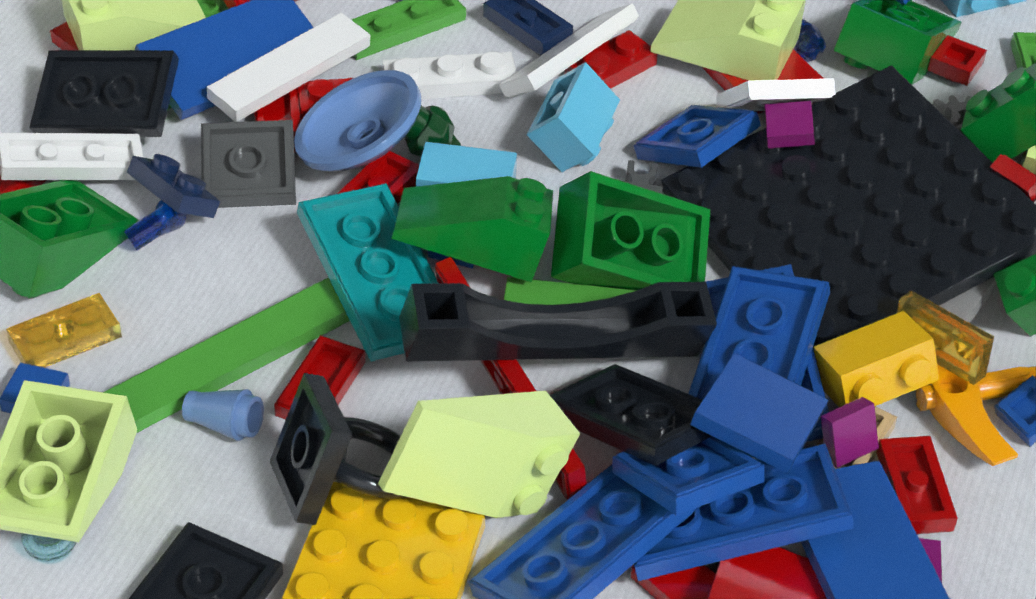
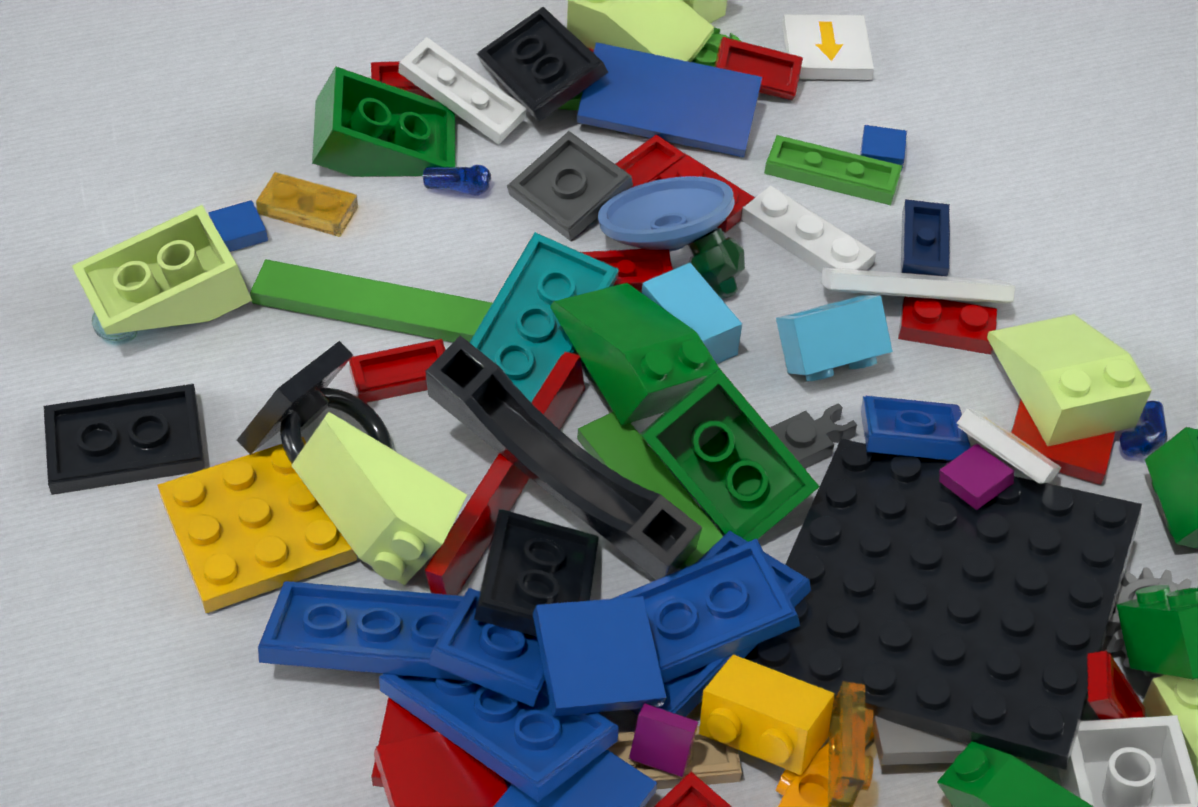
camera: 50 degrees right, 5 degrees up
(172, 186) = (494, 161): dark blue plate -> none
(226, 412) = (310, 333): medium blue cone -> none
(288, 67) = (690, 137): white tile -> none

